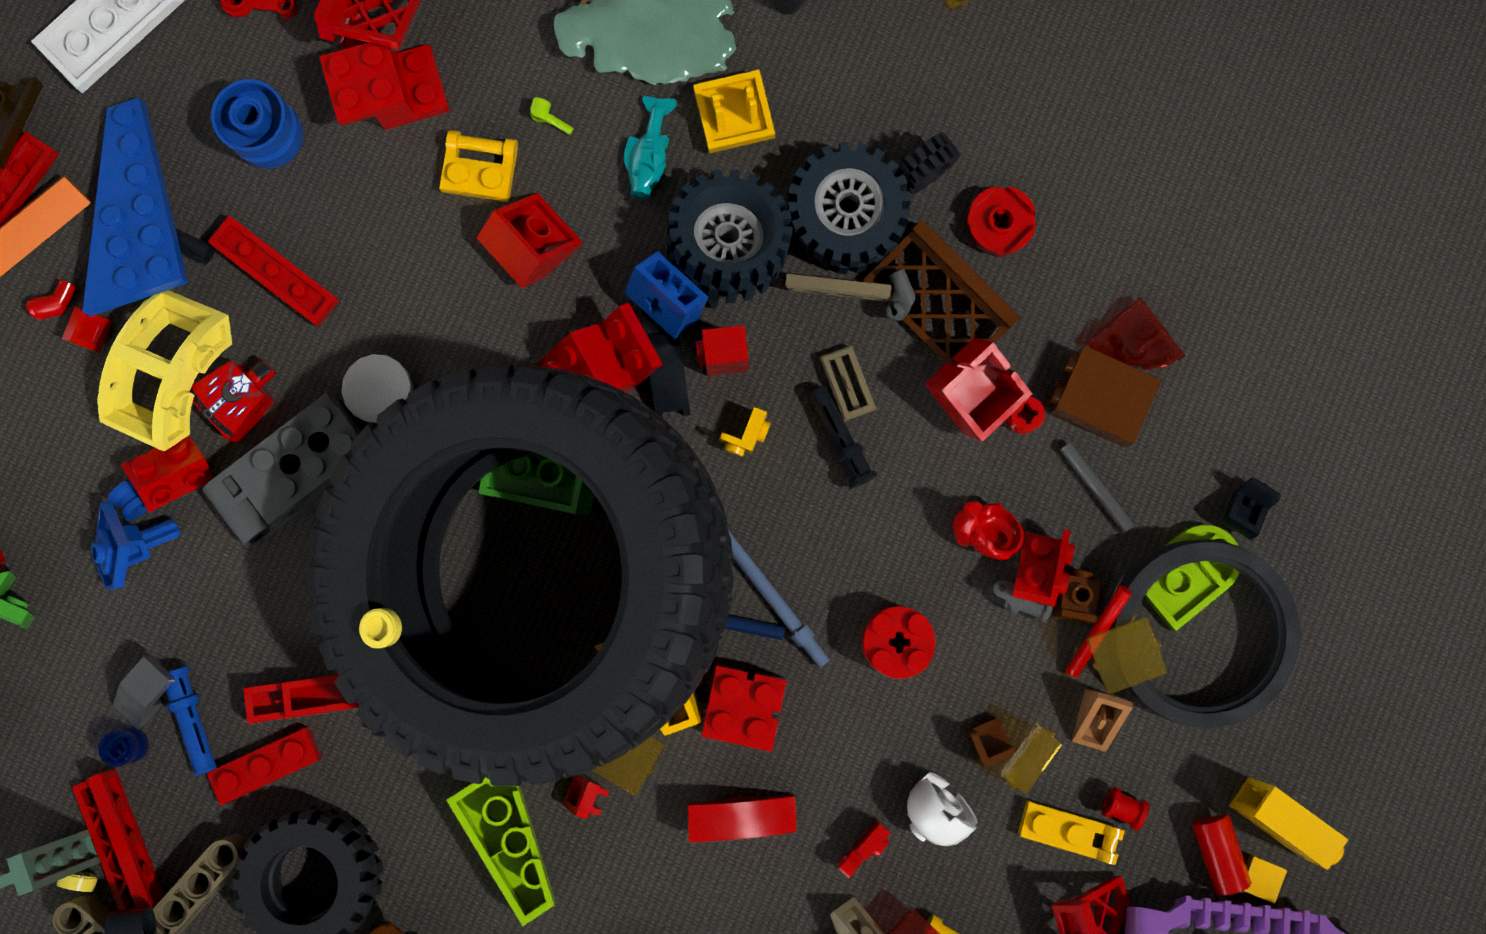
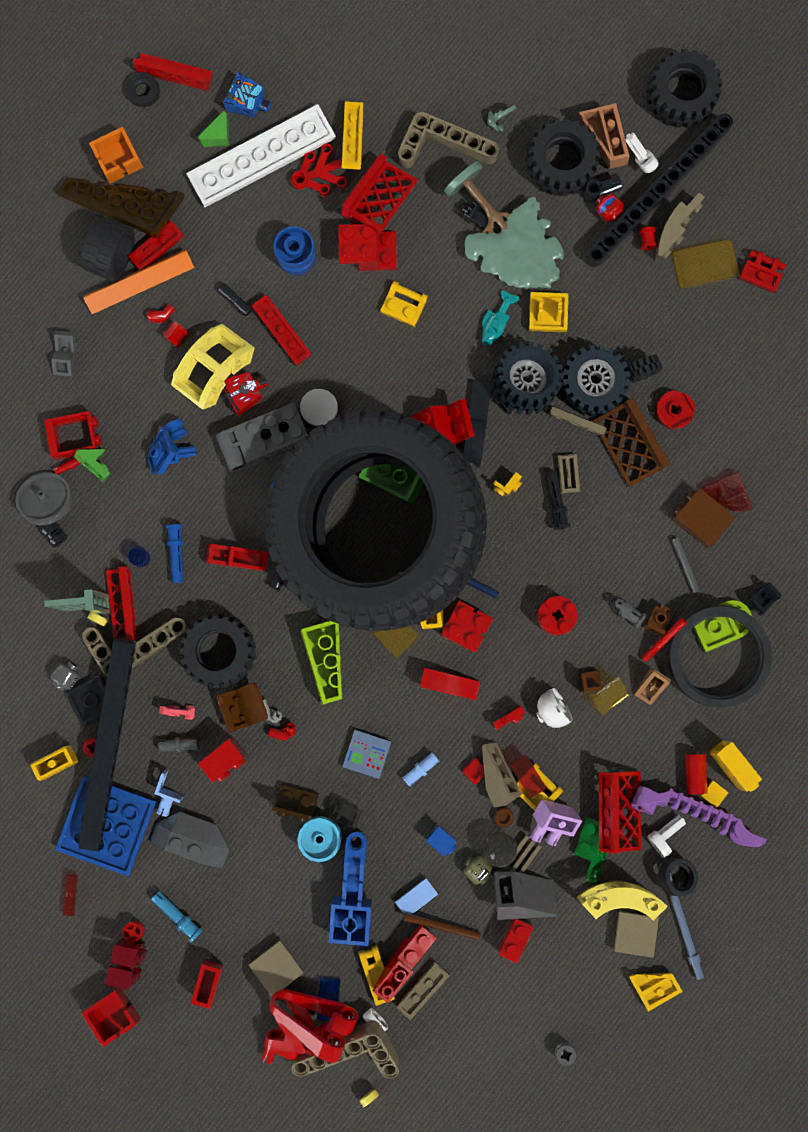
camera: 20 degrees right, 0 degrees up
(133, 226) = (215, 287): blue wing -> none
(141, 691) = (156, 530): dark grey slope -> none
(168, 474) = (199, 422): red bracket -> none
(264, 766) = (208, 588): red plate -> none
(380, 628) = (301, 527): light yellow tile -> none
(528, 239) = (420, 350): red slope -> none
(540, 113) = (444, 284): lime hand -> none
(582, 795) = (369, 649): red tile -> none
(666, 294) = (486, 400): blue brick -> none
(723, 350) = (508, 438): red piece -> none
(802, 634) = (507, 598): sand blue bar -> none
(902, 297) = (611, 435): dark grey arm -> none
(975, 393) = (634, 495): red piece -> none
(988, 529) = (621, 570): red hair -> none
(1018, 420) = (655, 518): red wheel -> none
(1042, 567) = (643, 598): red bracket -> none
(1069, 832) = (619, 740): yellow plate -> none
(1125, 808) = (652, 736): red bush -> none
(1127, 655) = (675, 655): clear yellow piece -> none

